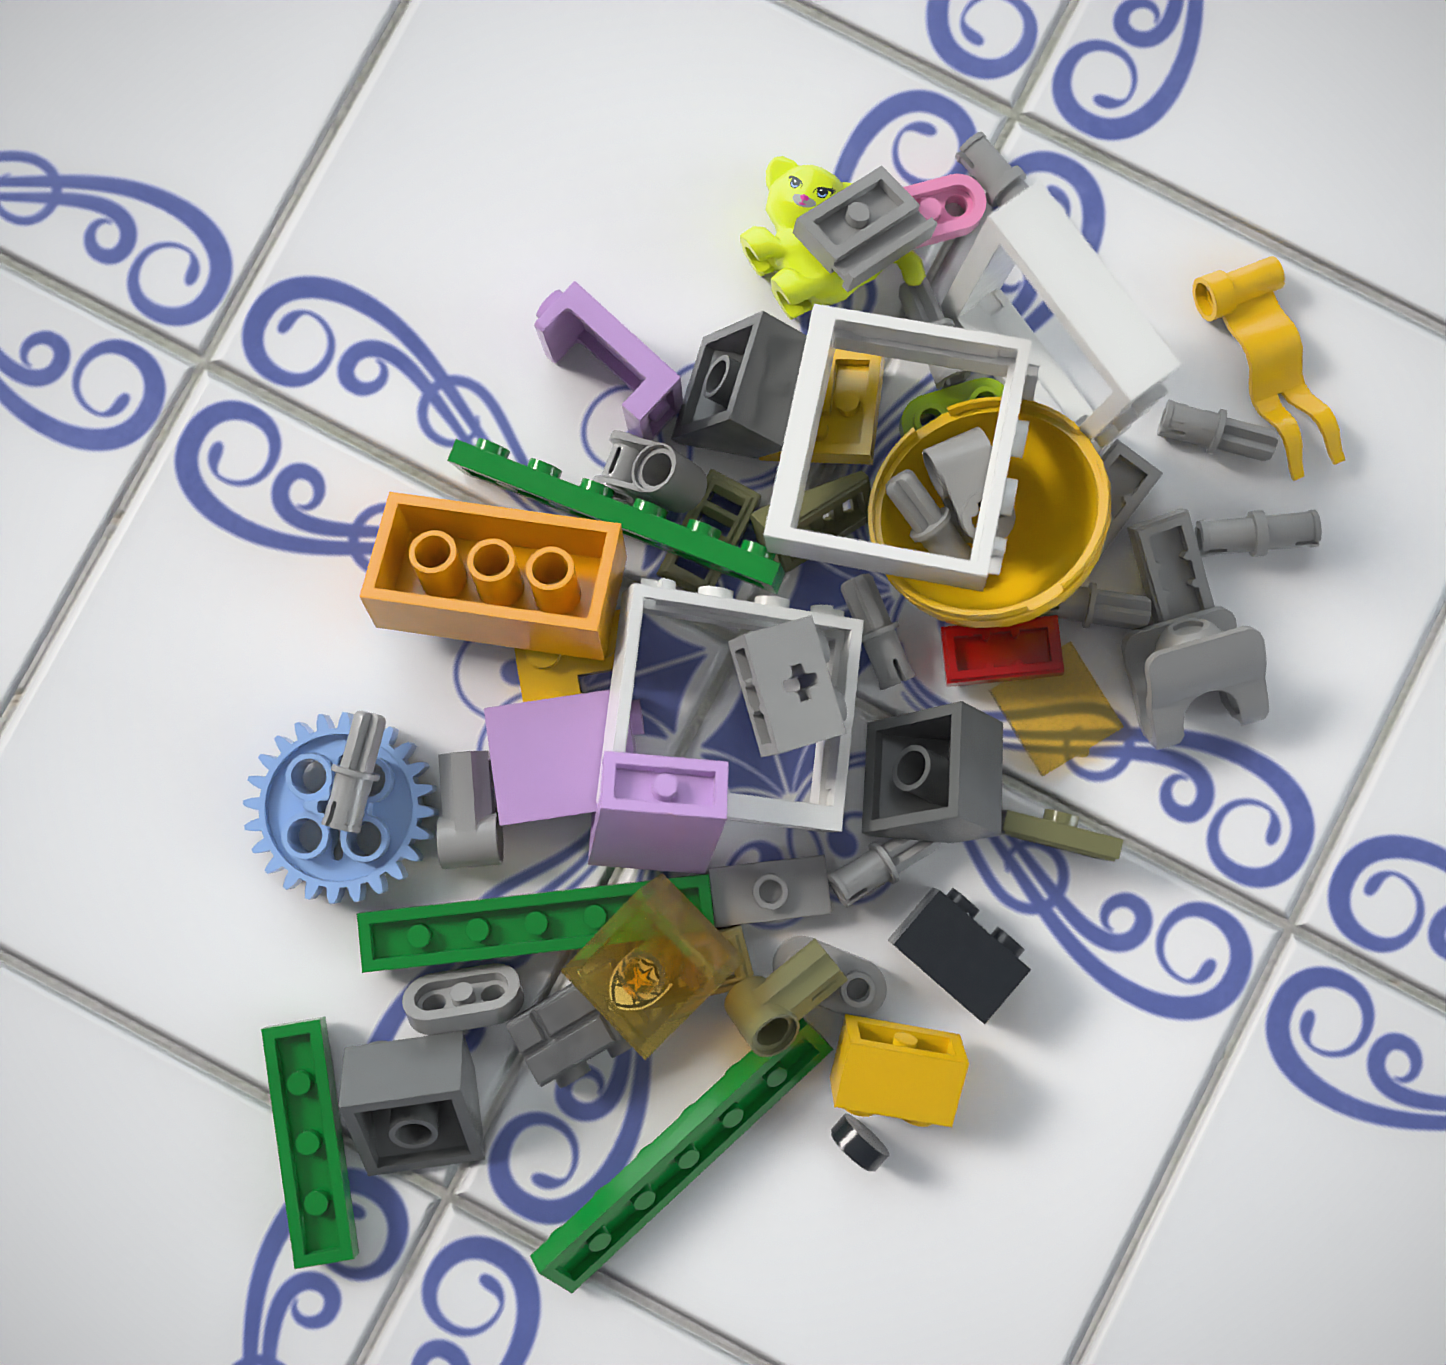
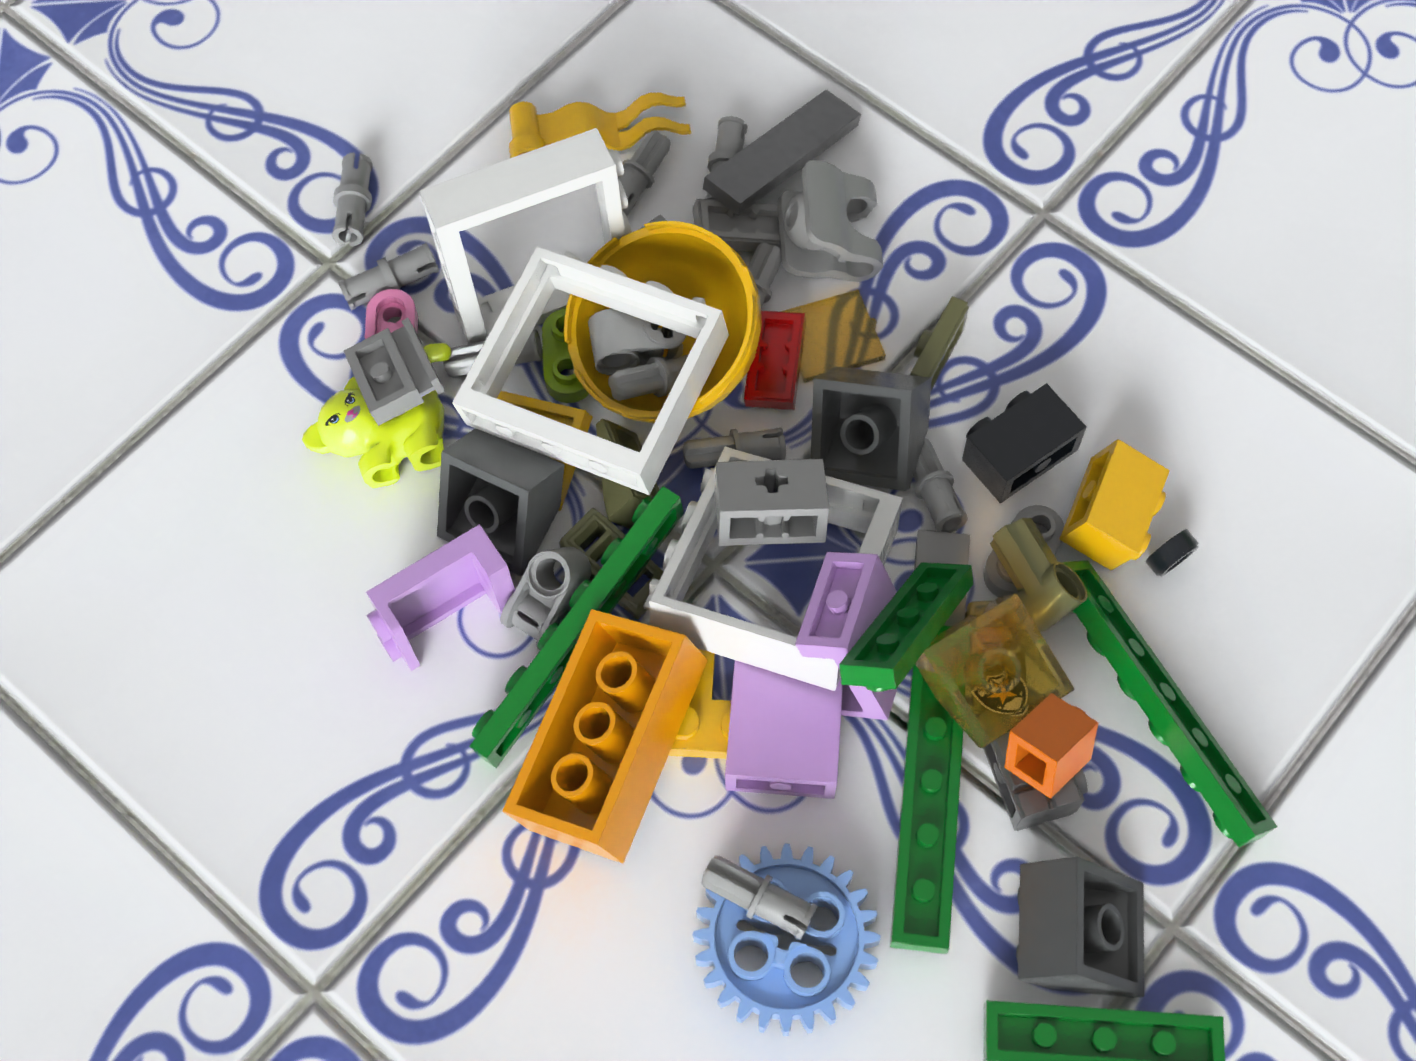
camera: 75 degrees left, 20 degrees down
(463, 999) = (989, 868): light grey plate -> none
(469, 825) = (829, 822): light grey piece -> none
(572, 1045) = (1051, 745): none -> orange brick
(665, 866) = (906, 626): none -> green plate
(1099, 112) = (352, 199): none -> light grey pin
(1288, 596) = (781, 152): none -> flat silver tile

